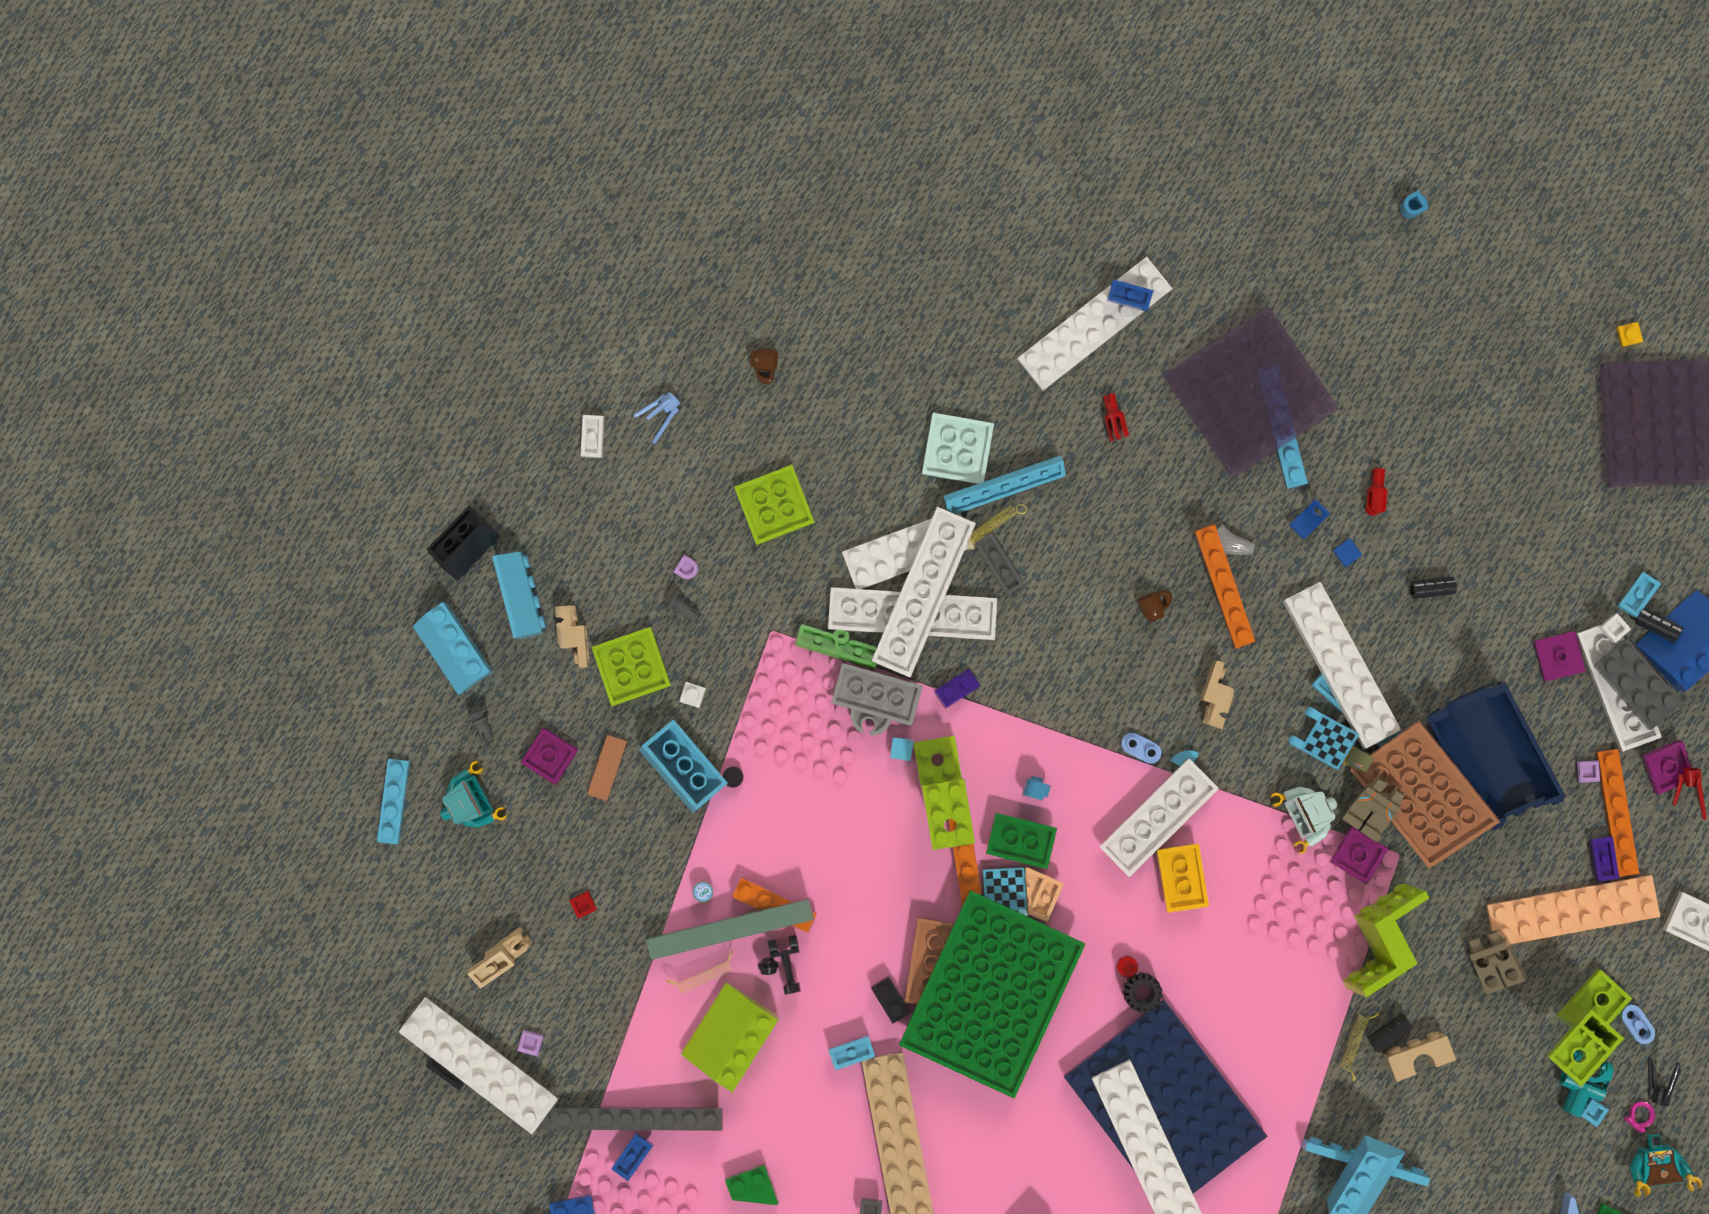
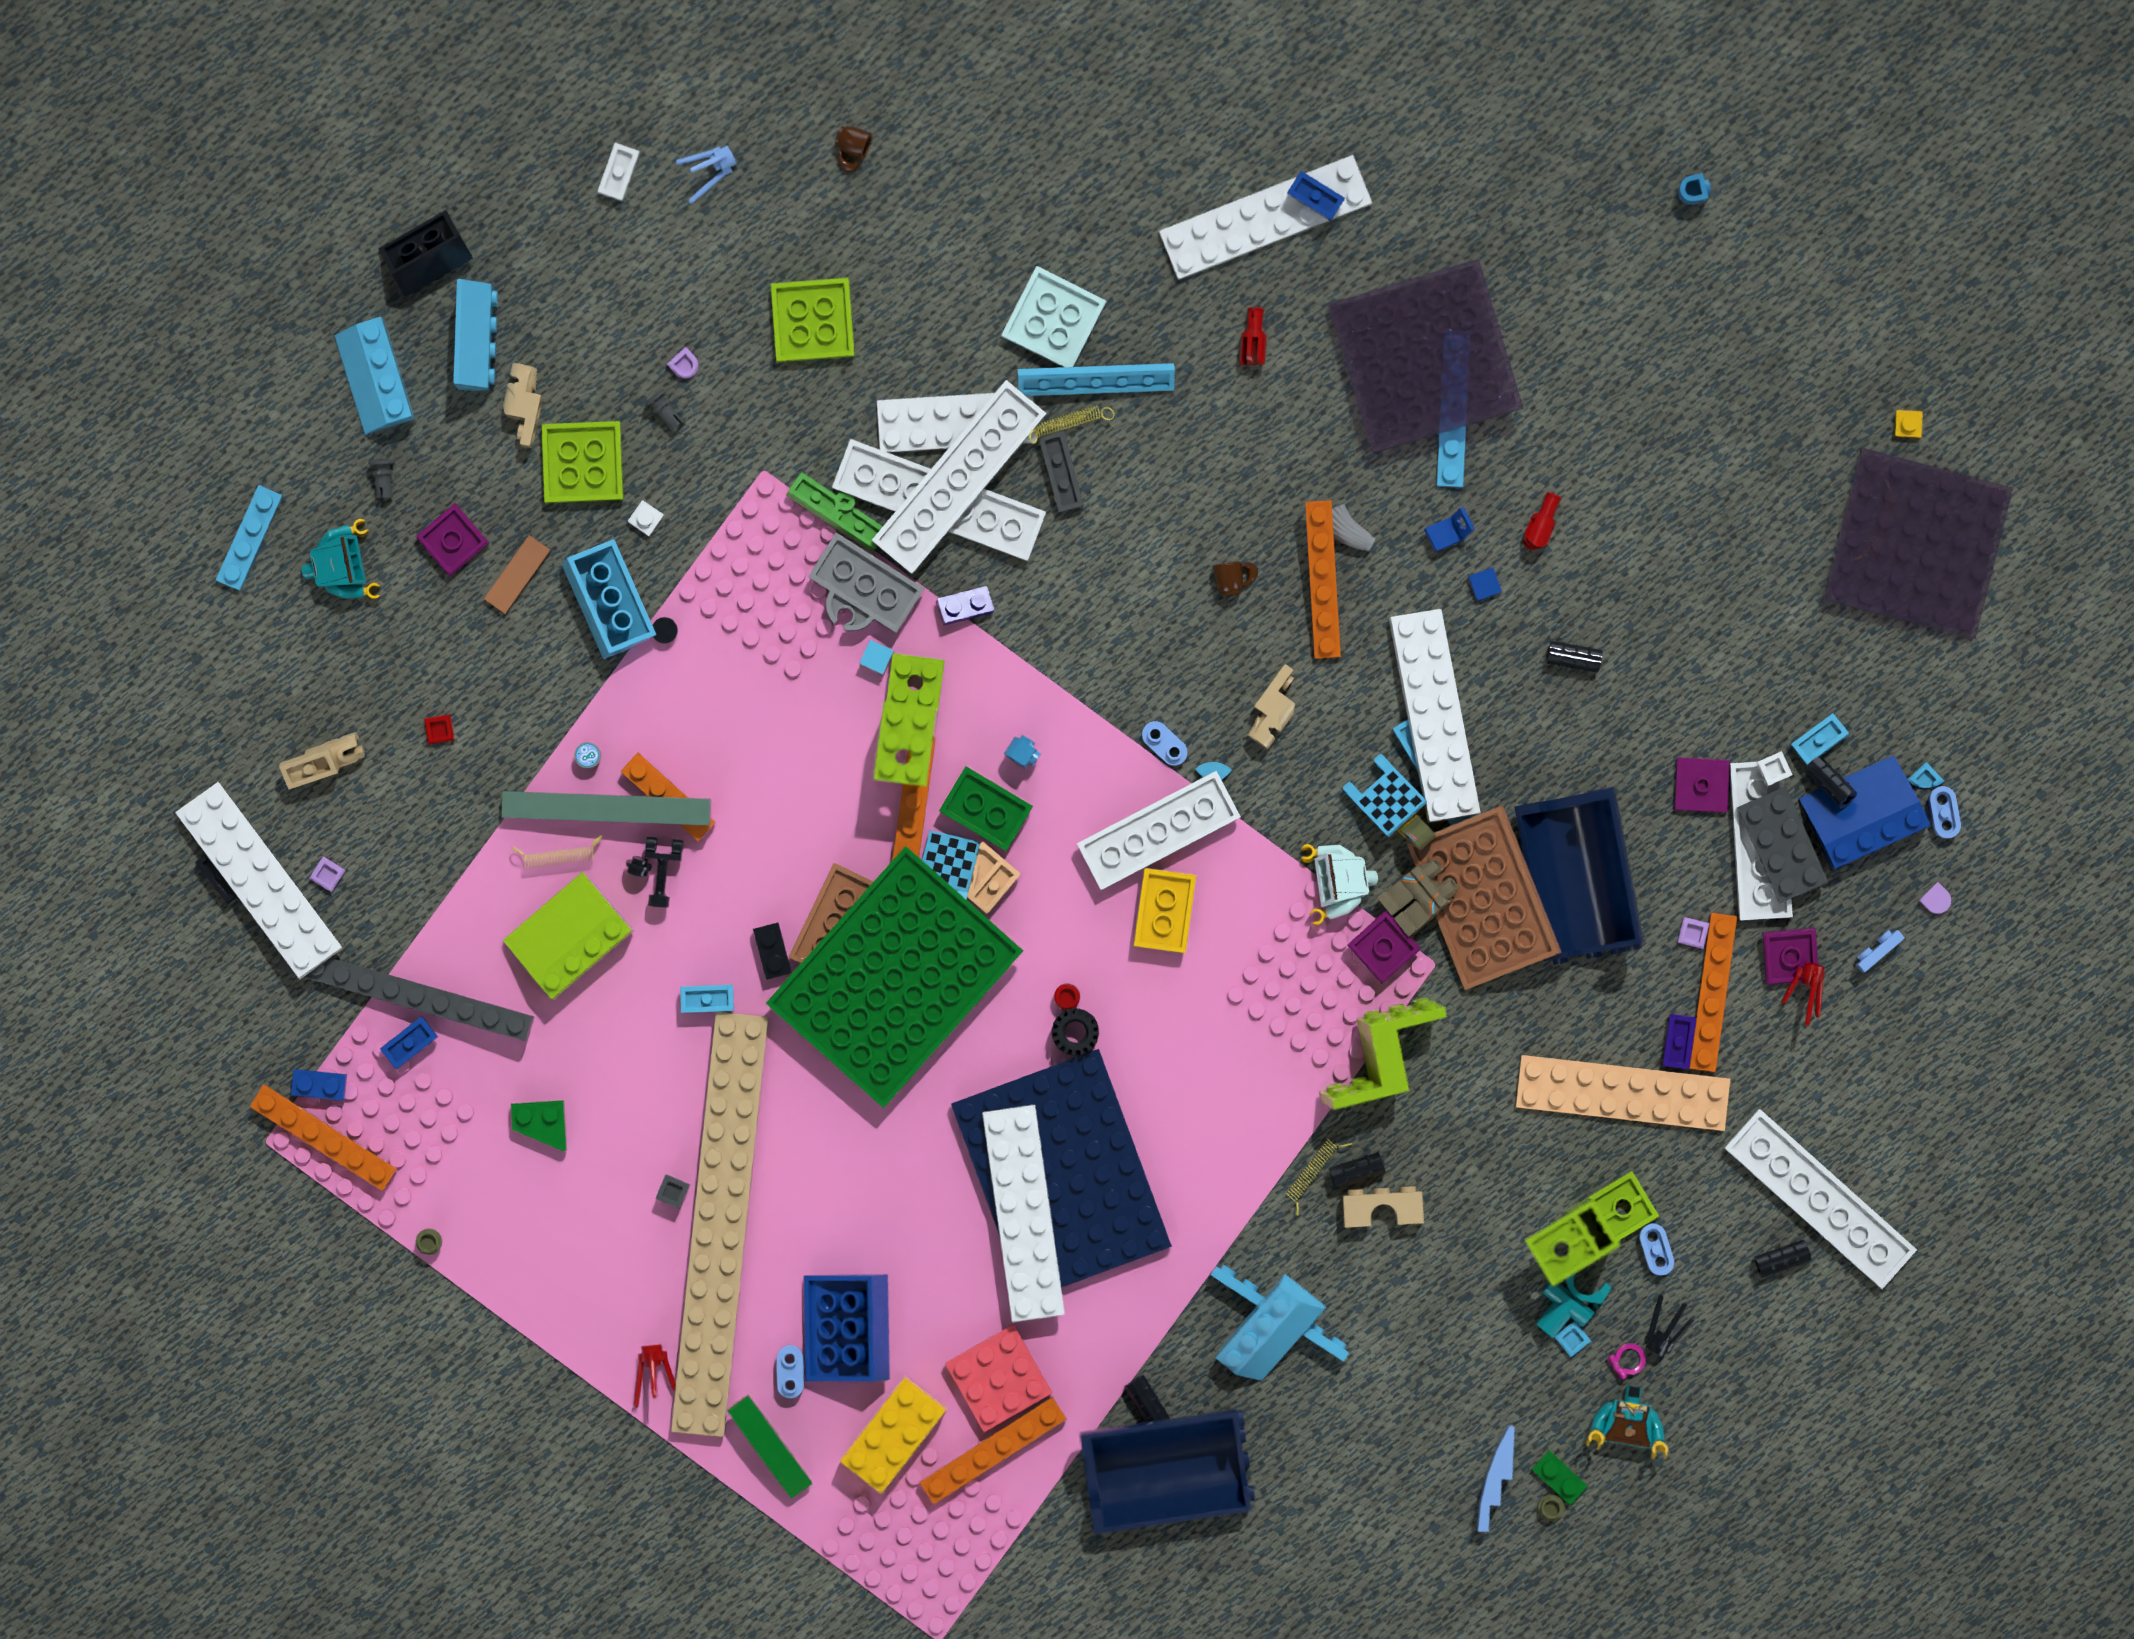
camera: 15 degrees right, 0 degrees up
(1496, 962) = (1508, 1124): dark tan hips -> none

